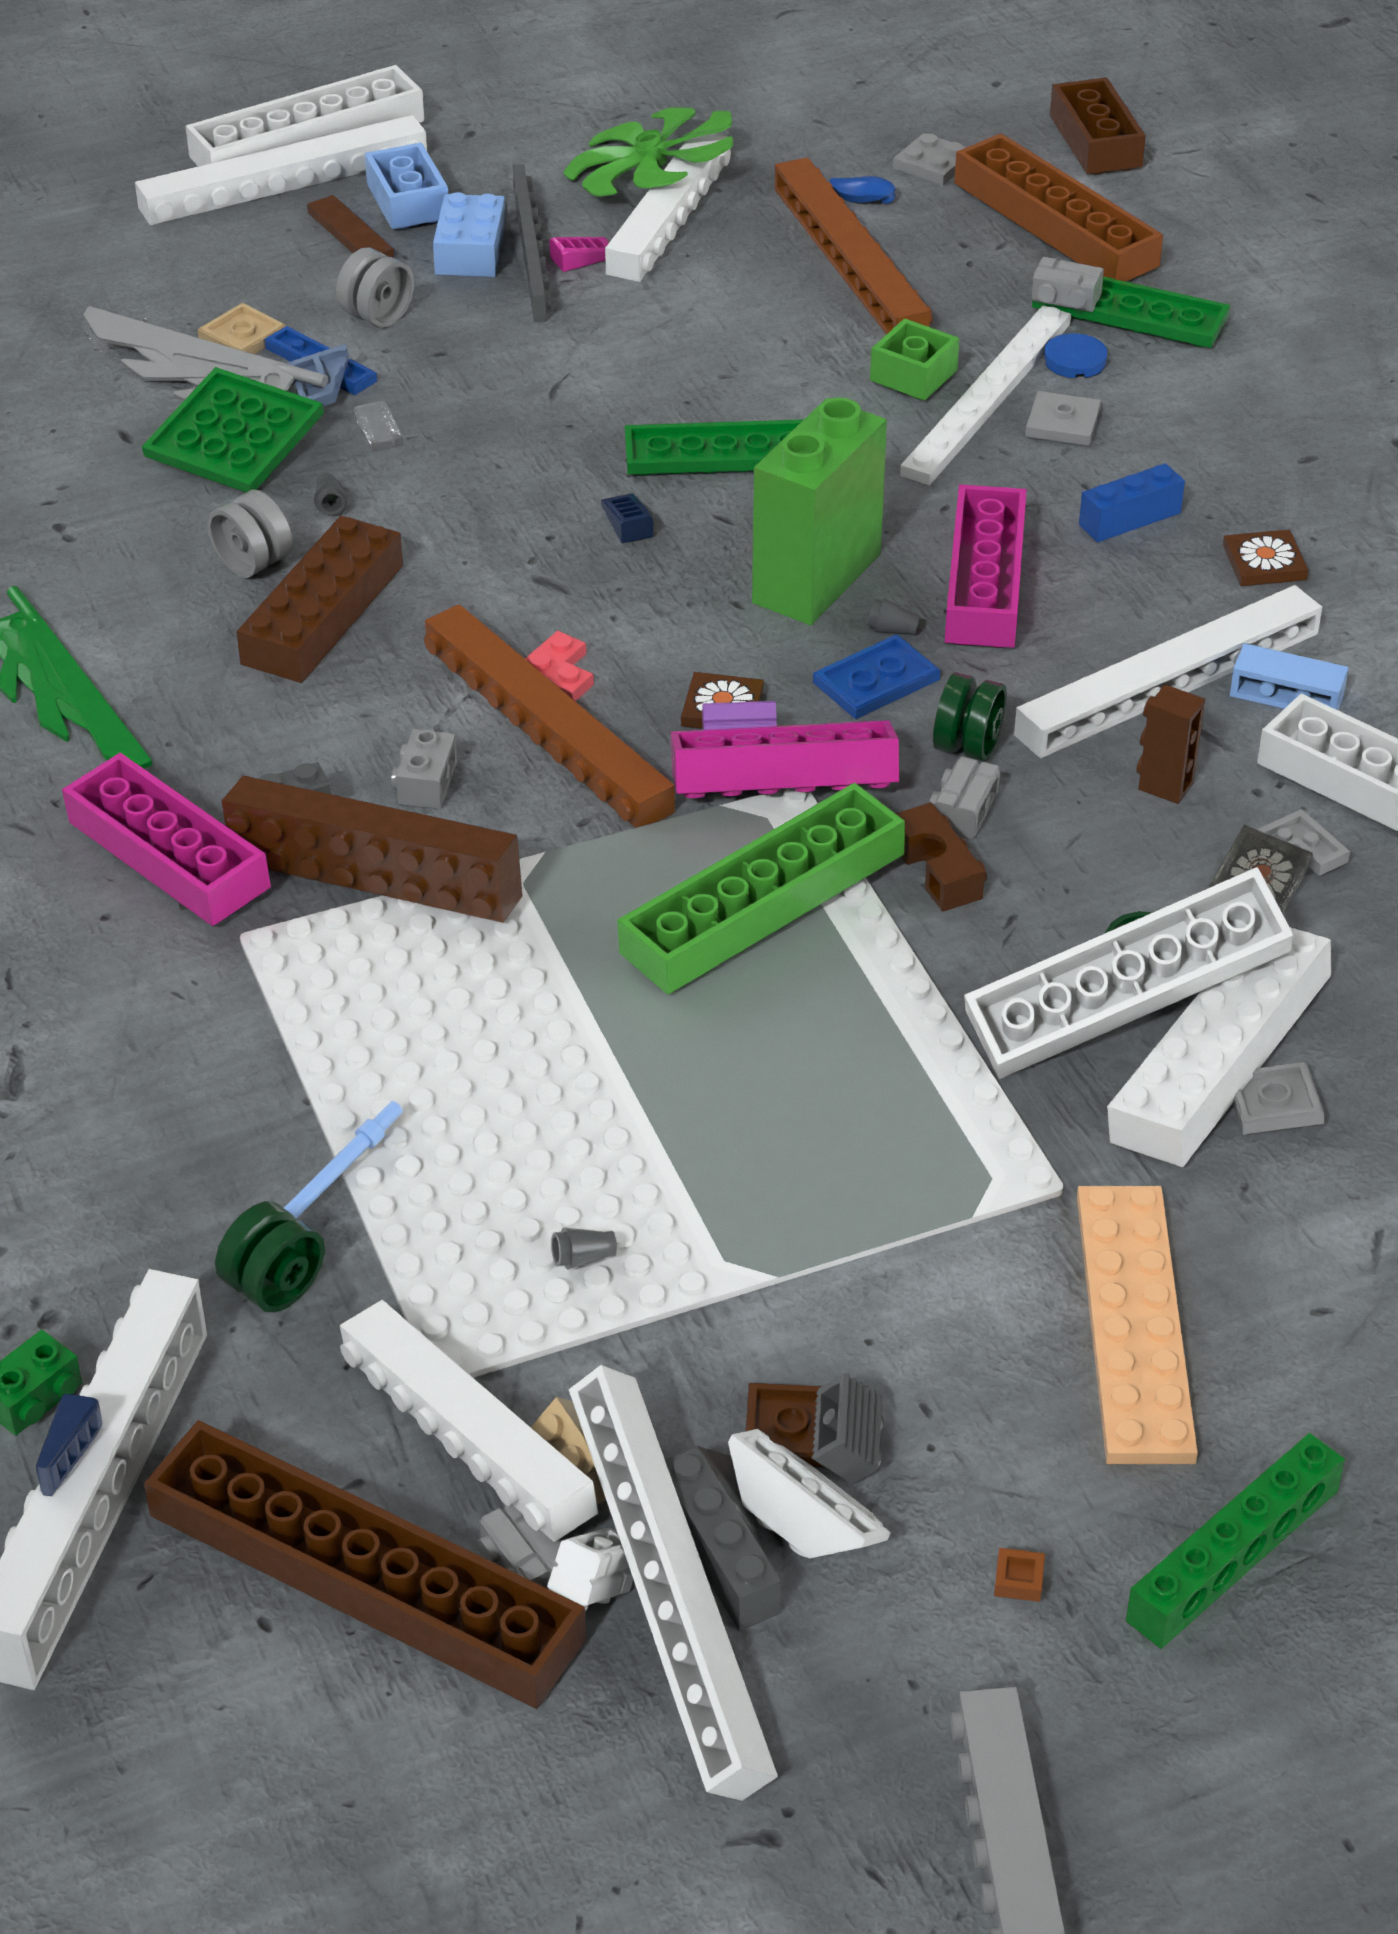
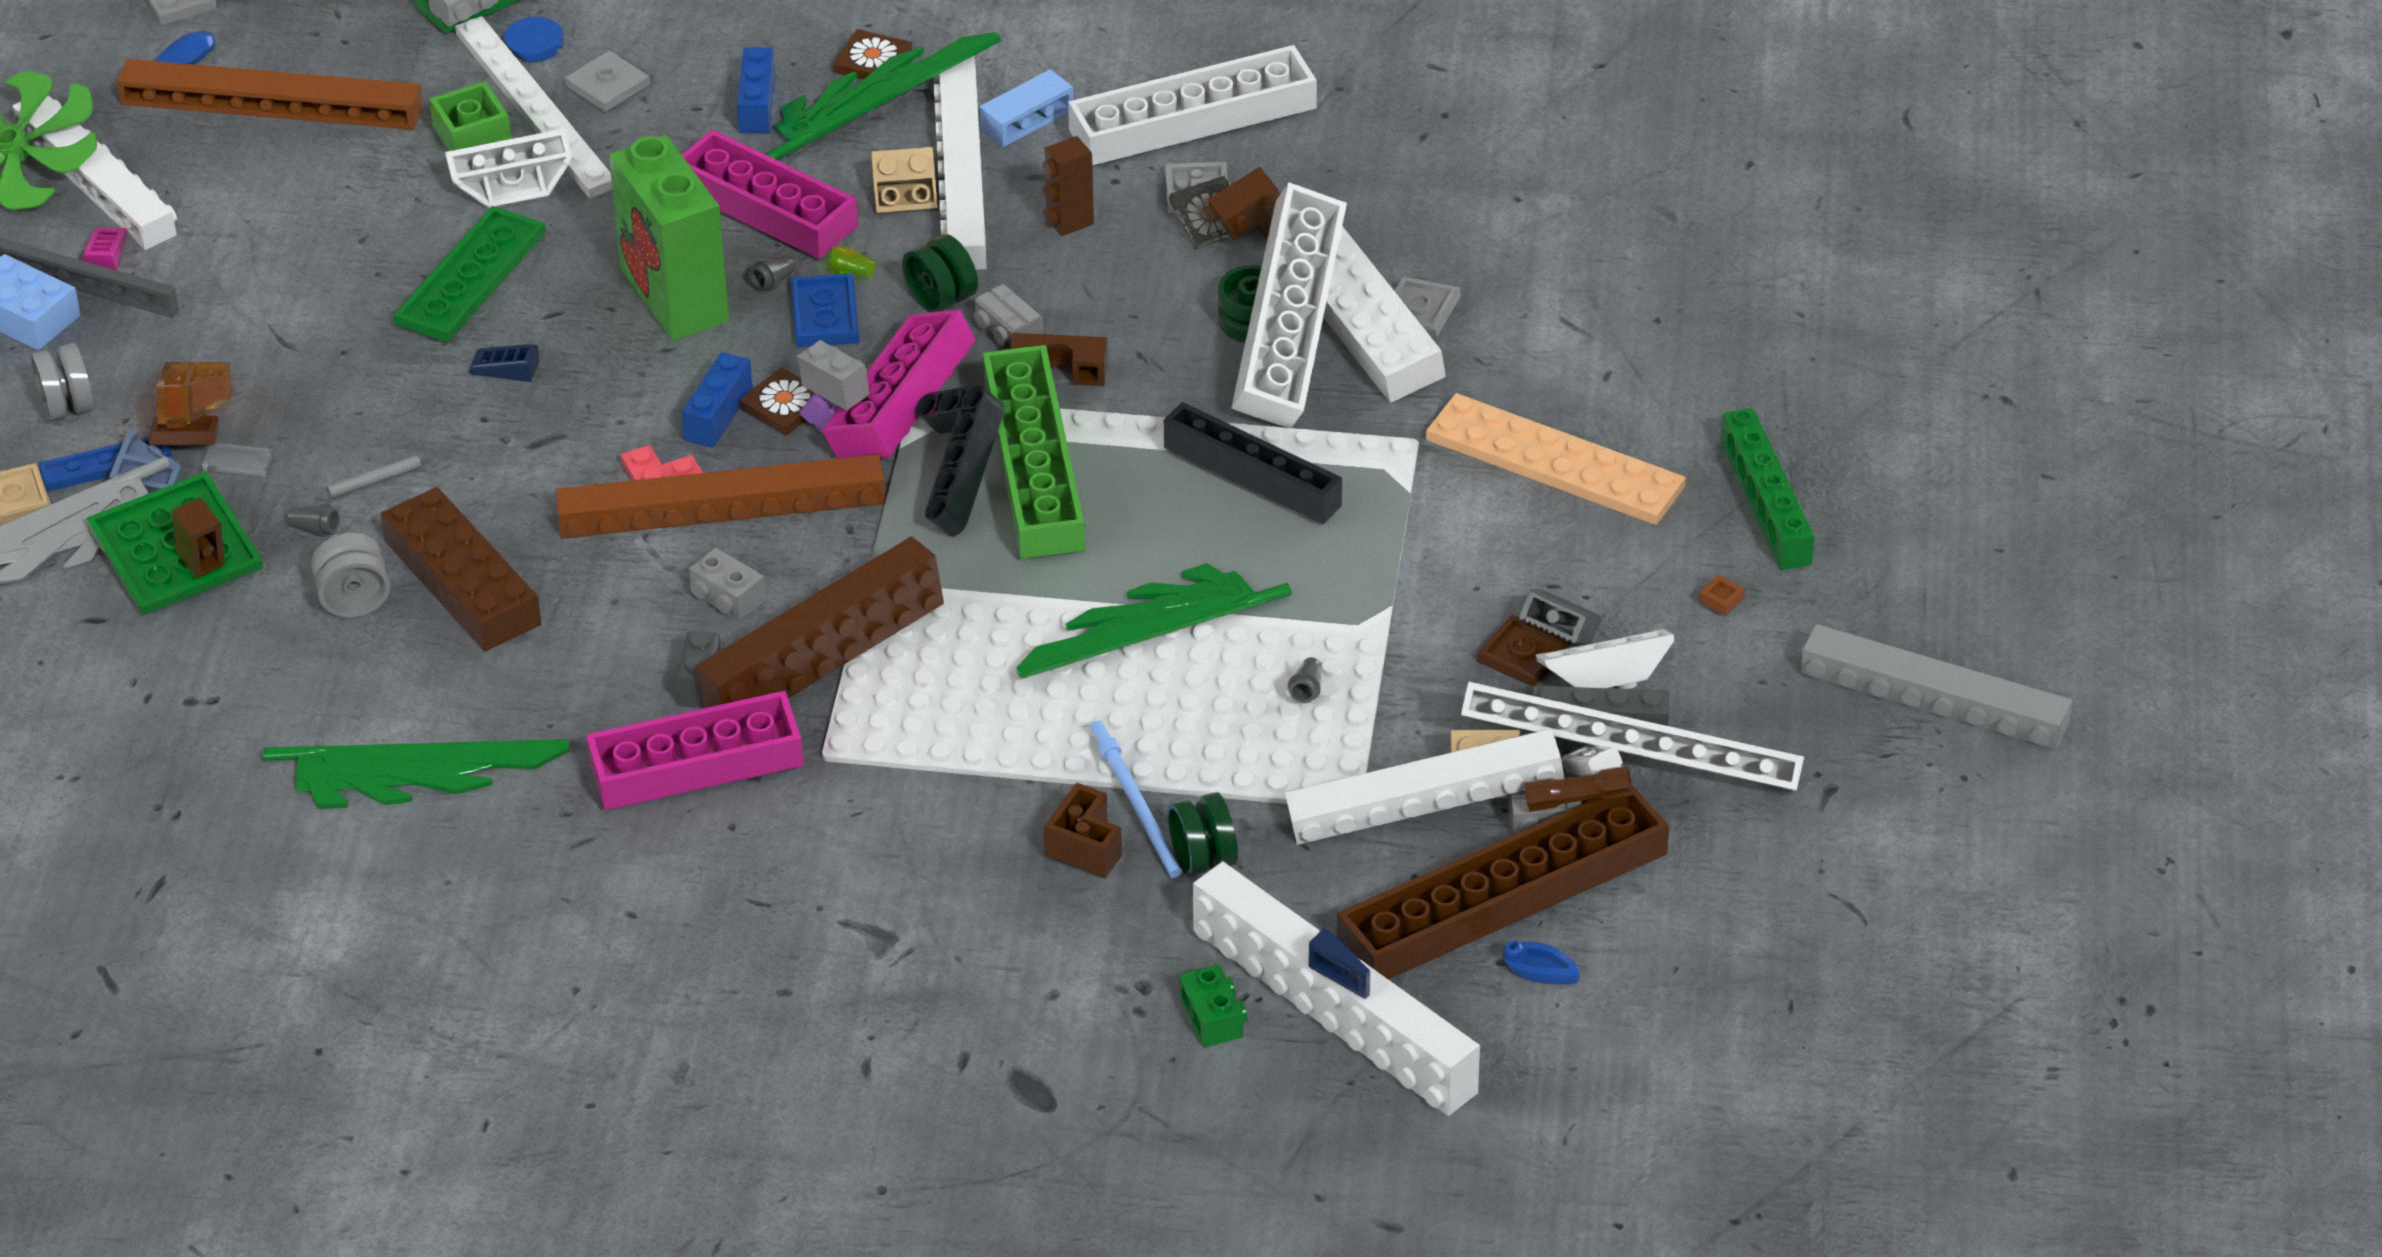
camera: 60 degrees left, 0 degrees up
(215, 425) = (198, 538): none -> reddish brown brick
(227, 1156) = (1081, 832): none -> reddish brown brick
(269, 1658) = (1540, 963): none -> blue arm
(378, 376) = (199, 432): none -> reddish brown tile
(412, 351) = (191, 391): none -> clear orange wedge
(417, 505) = (373, 476): none -> light grey bar
(540, 1573) = (1603, 784): none -> reddish brown axle
(584, 1076) = (1168, 611): none -> green animal
(675, 654) = (716, 399): none -> blue brick
(700, 837) = (973, 421): none -> black beam
(728, 694) = (833, 375): none -> light grey brick
(877, 395) = (511, 168): none -> white wedge
(882, 1060) = (1253, 463): none -> black brick
(950, 656) = (847, 260): none -> clear neon green cone
(1097, 639) = (904, 180): none -> tan slope
(1186, 565) = (892, 78): none -> green animal
(1294, 885) = (1246, 204): none -> reddish brown brick

